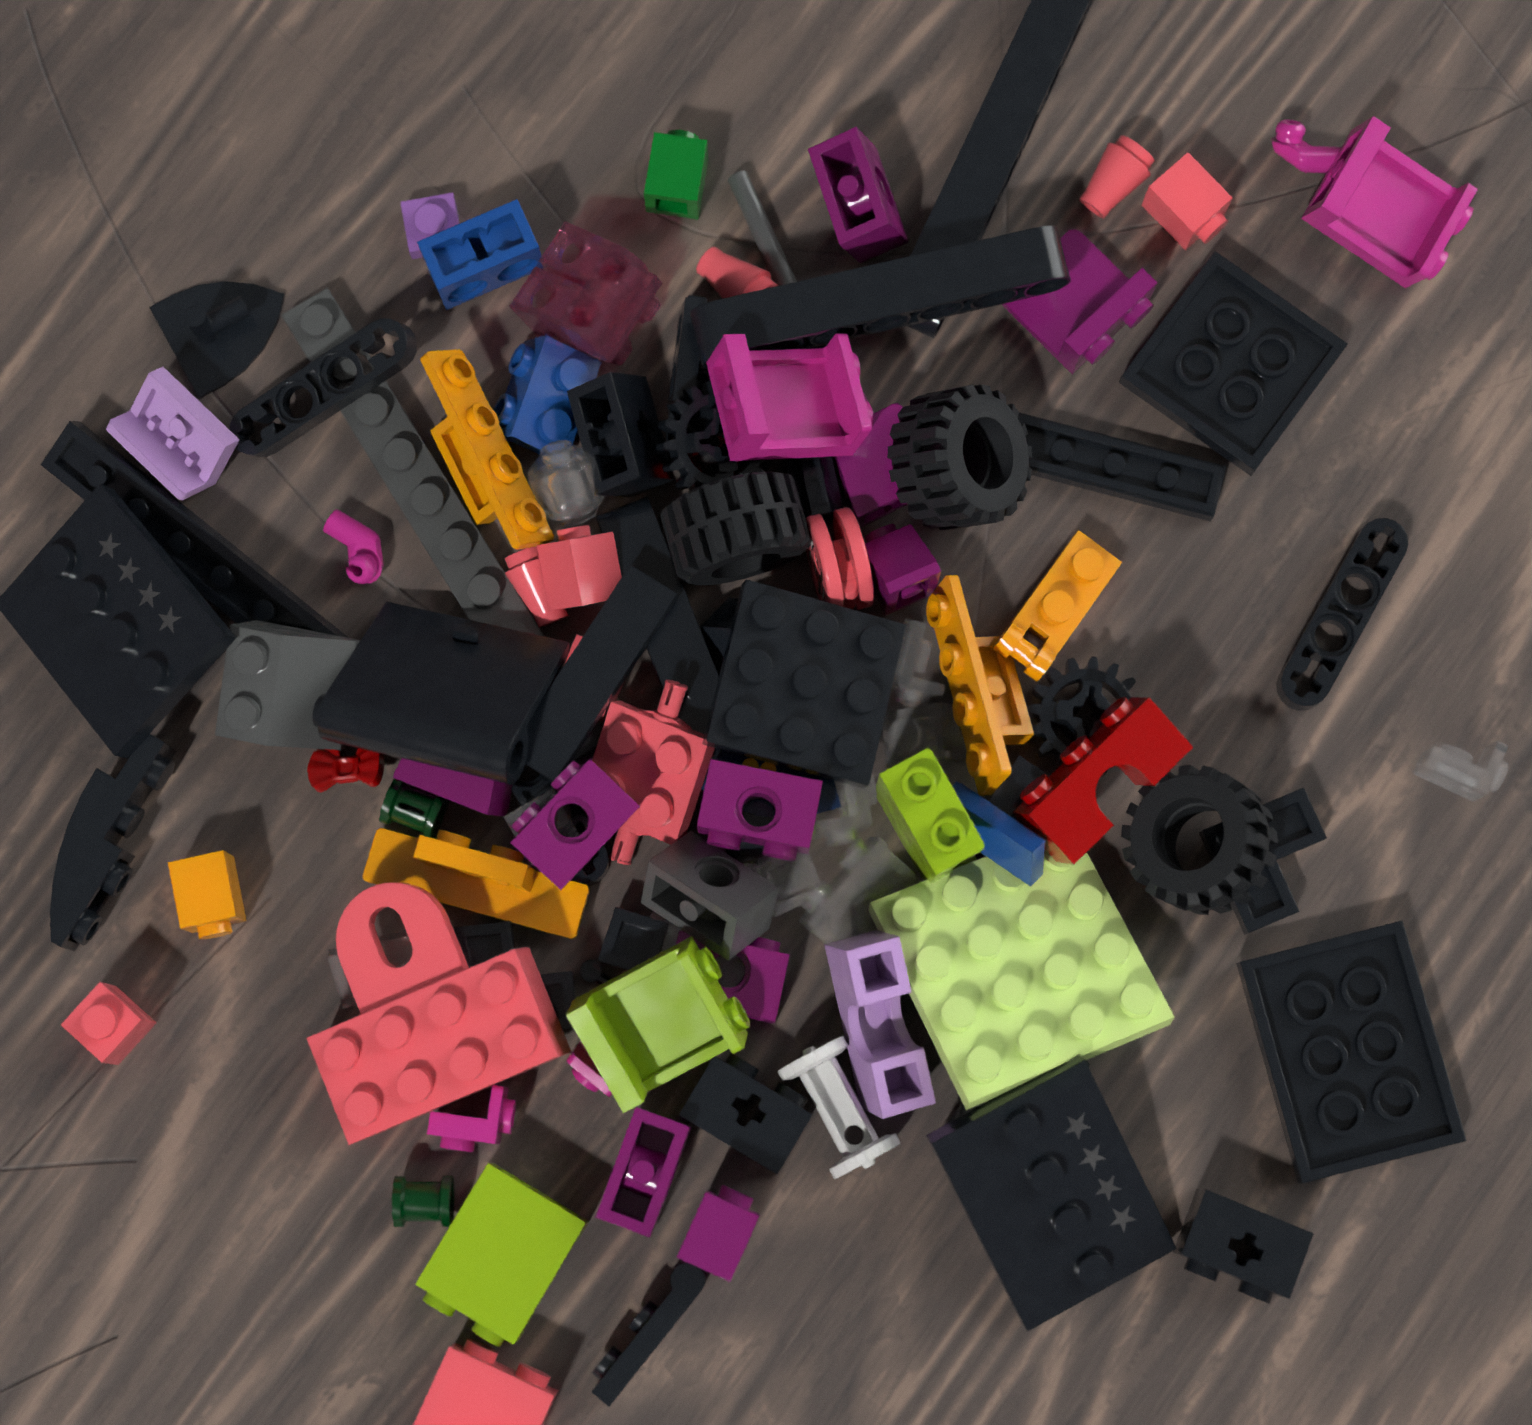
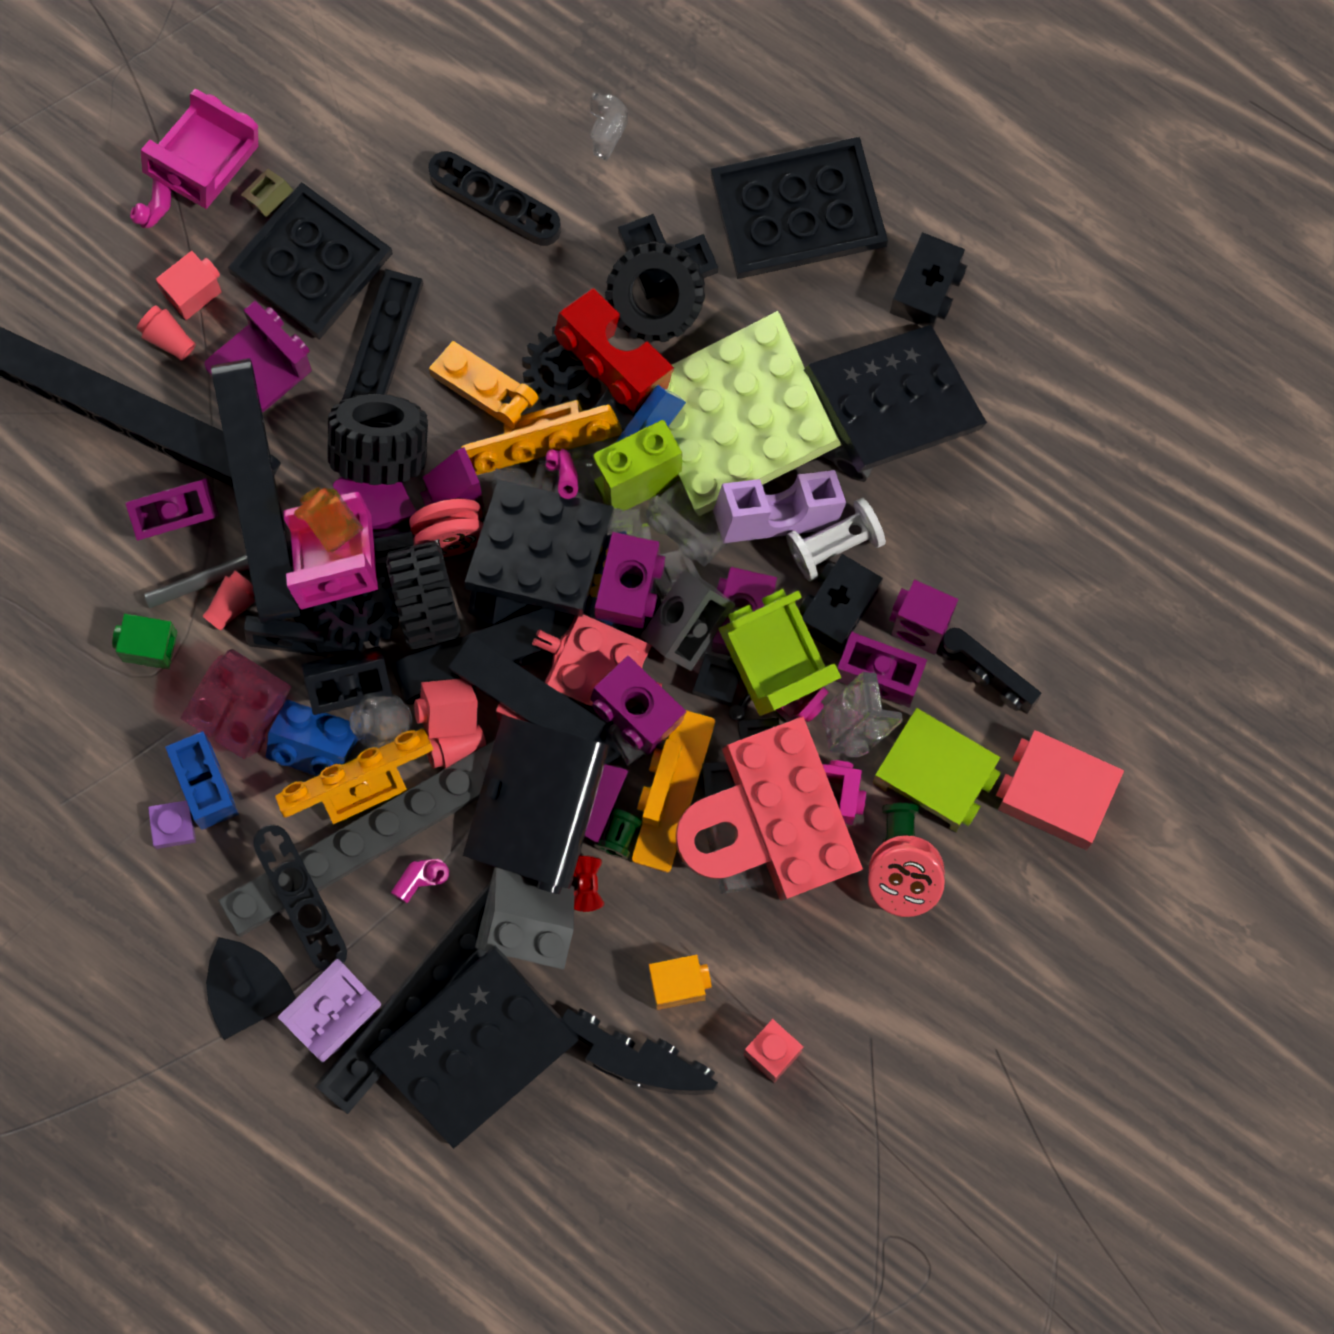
camera: 90 degrees left, 5 degrees down
(345, 1208) = (906, 876): none -> coral head
(570, 1134) = (856, 717): none -> clear bracket
(829, 389) = (328, 517): none -> bracket
(913, 722) = (568, 476): none -> dark pink arm
(1330, 299) = (267, 192): none -> olive plate

